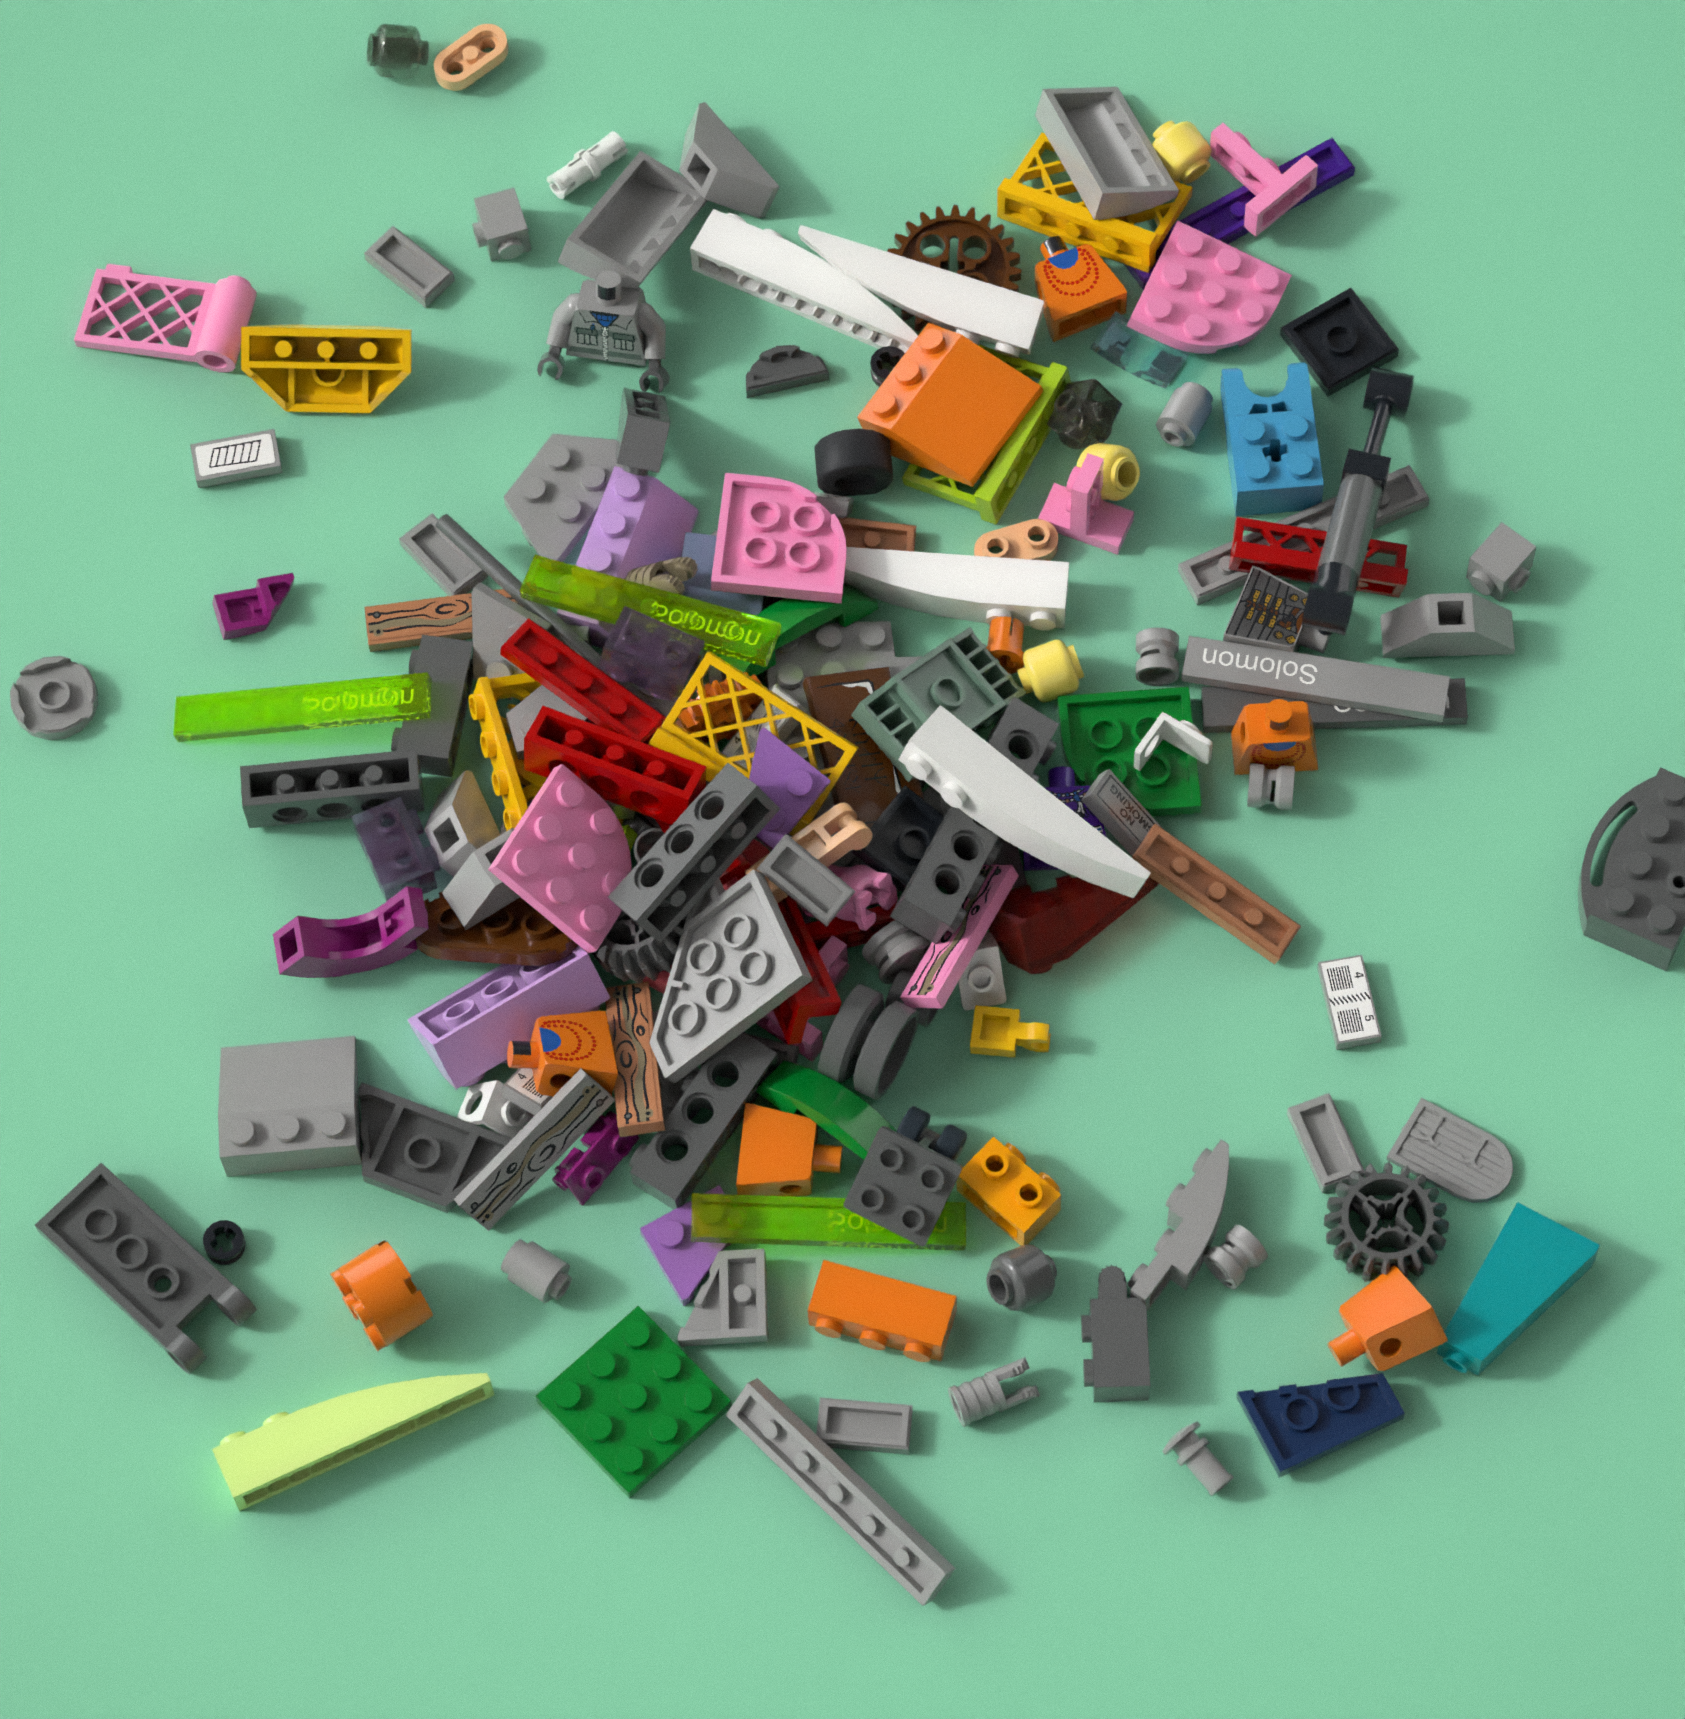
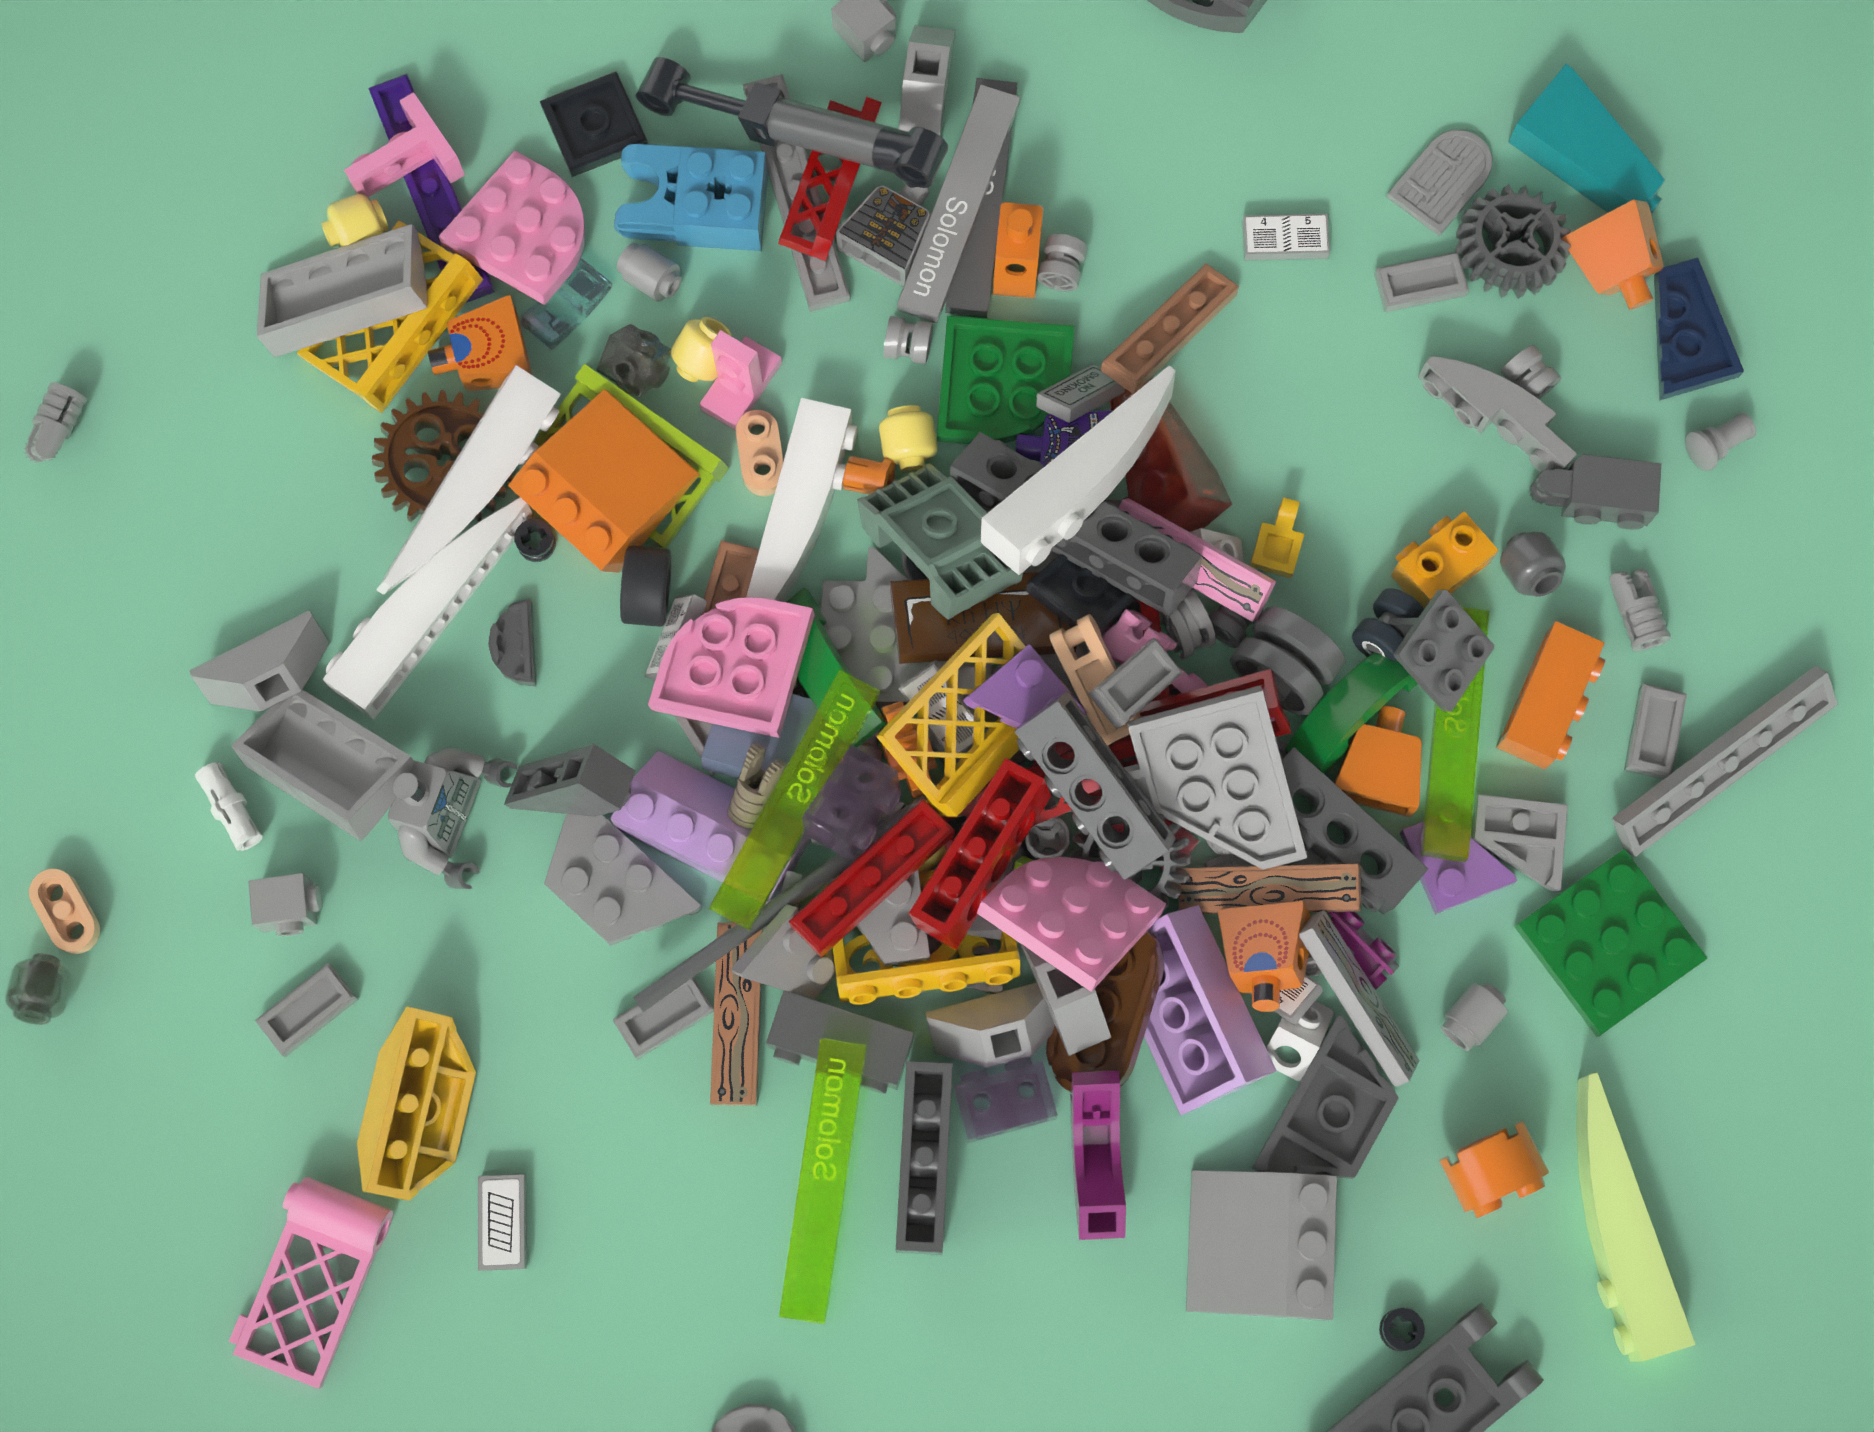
camera: 85 degrees left, 10 degrees up
(251, 609) = (685, 1225): magenta slope -> none
(1180, 734) = (1006, 324): white bracket -> none

